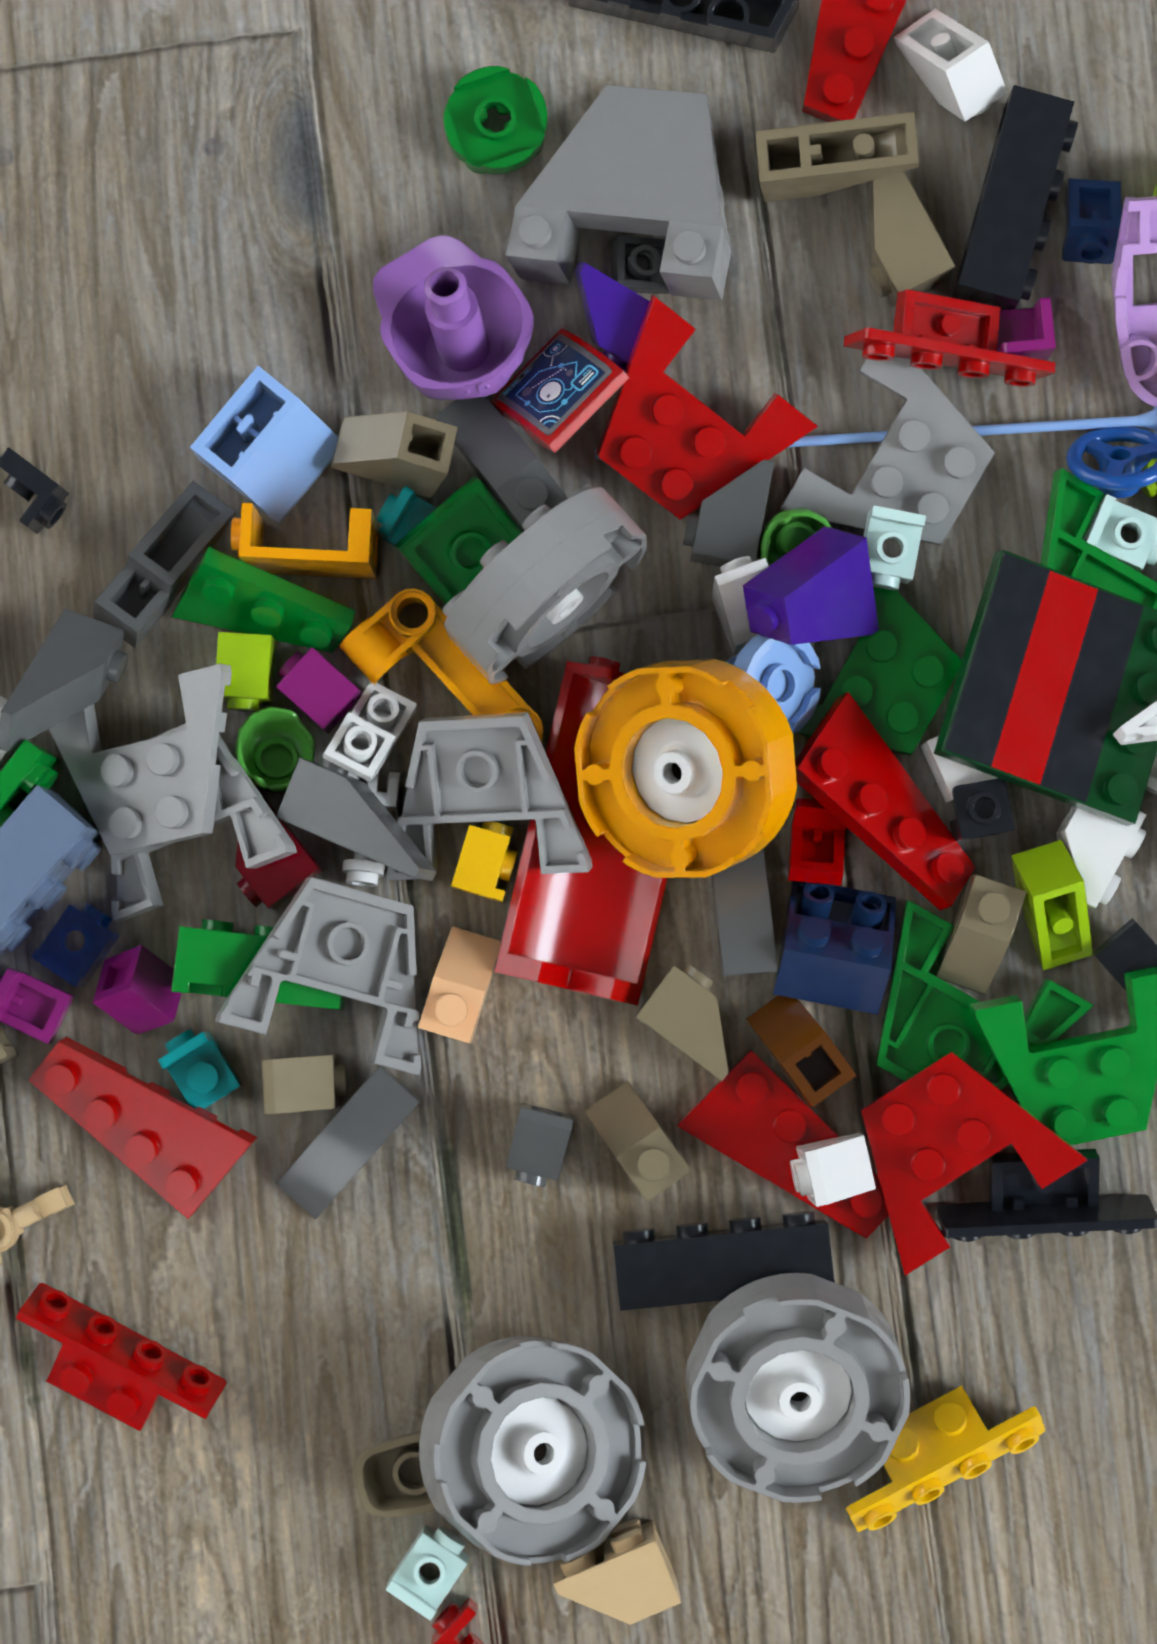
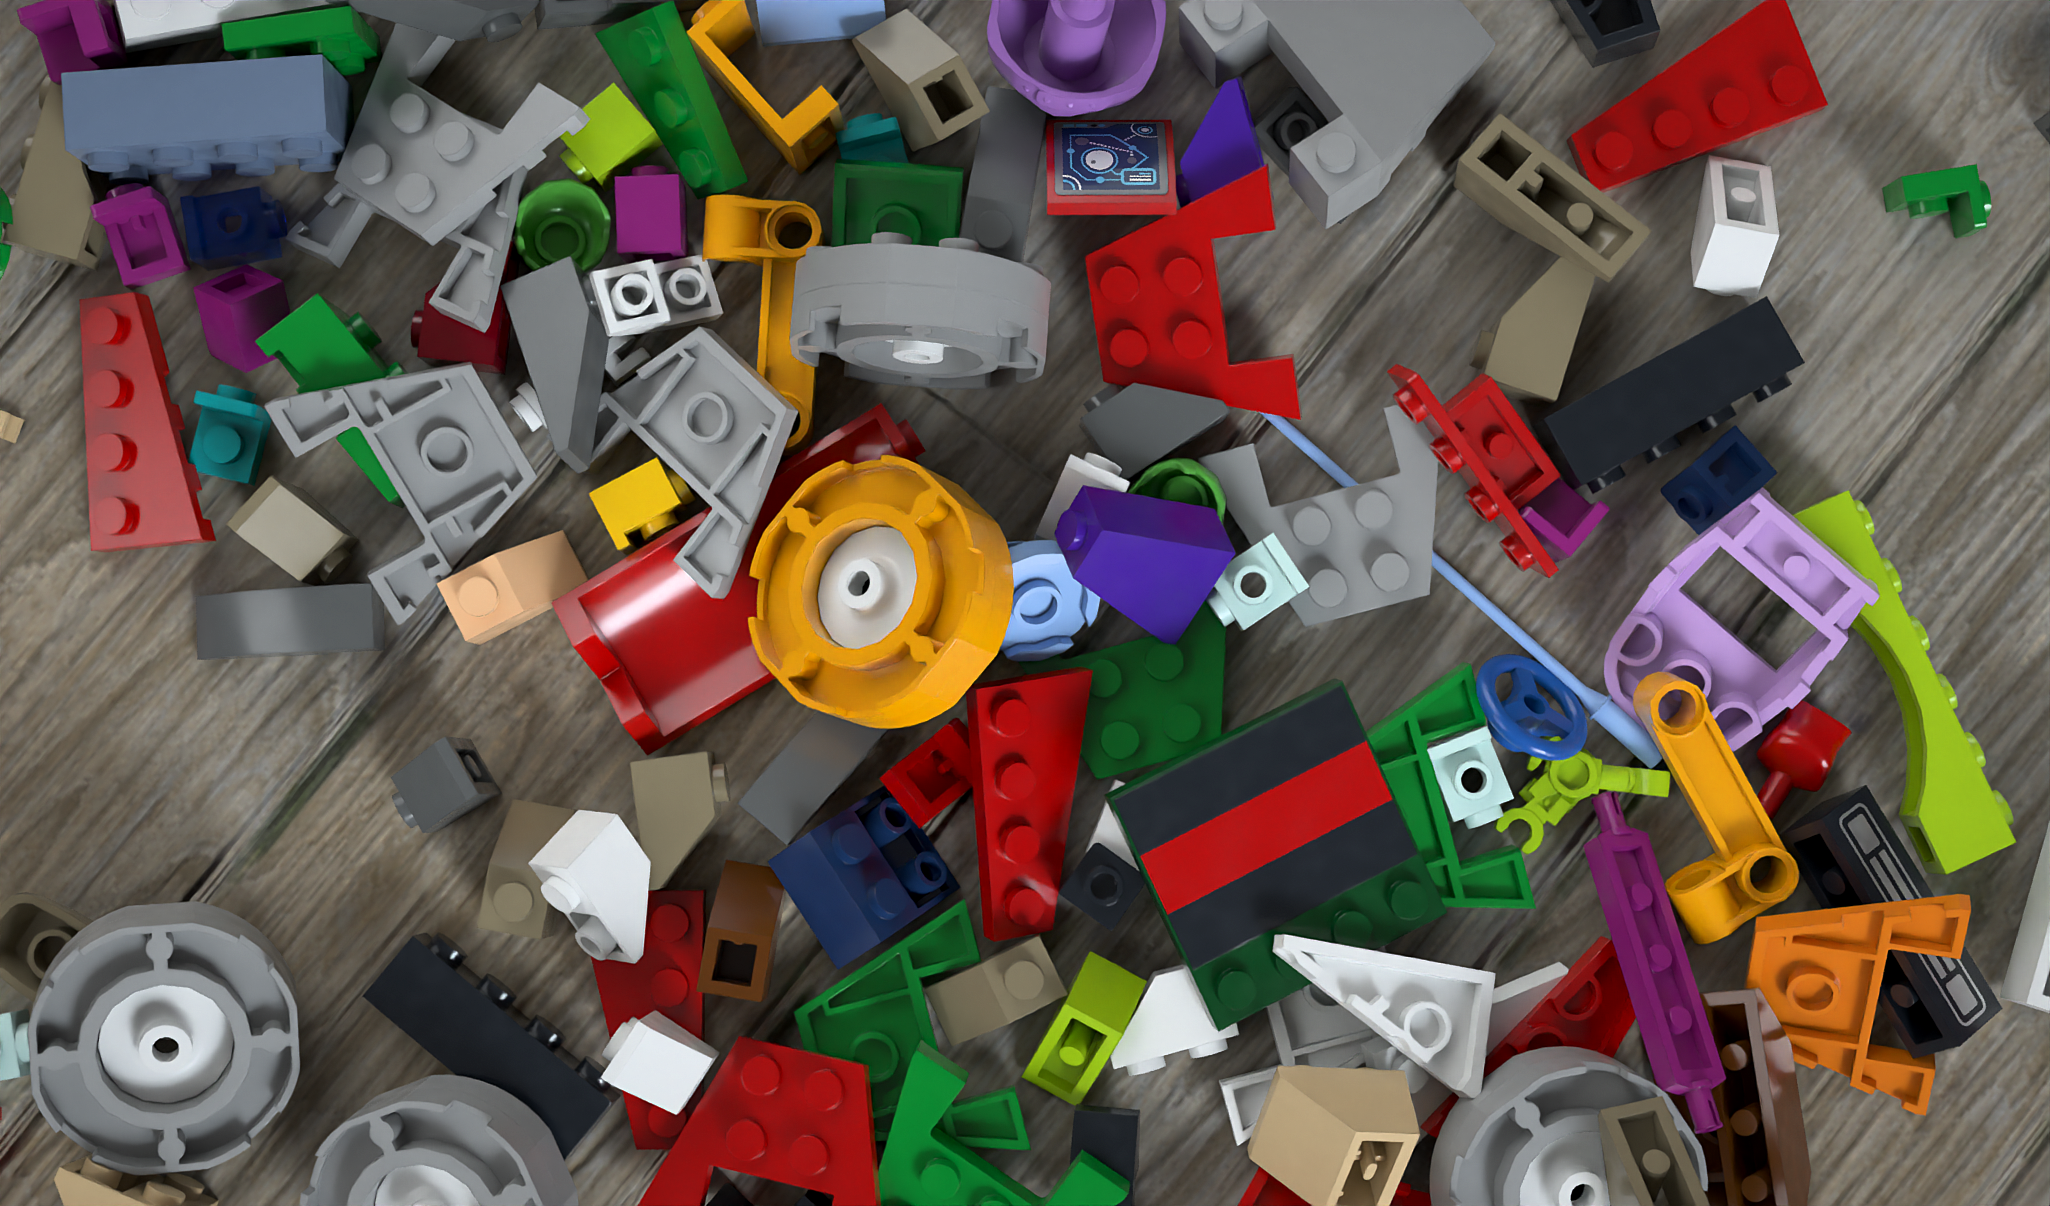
camera: 45 degrees right, 0 degrees up
(691, 1104) = (599, 882): none -> white slope

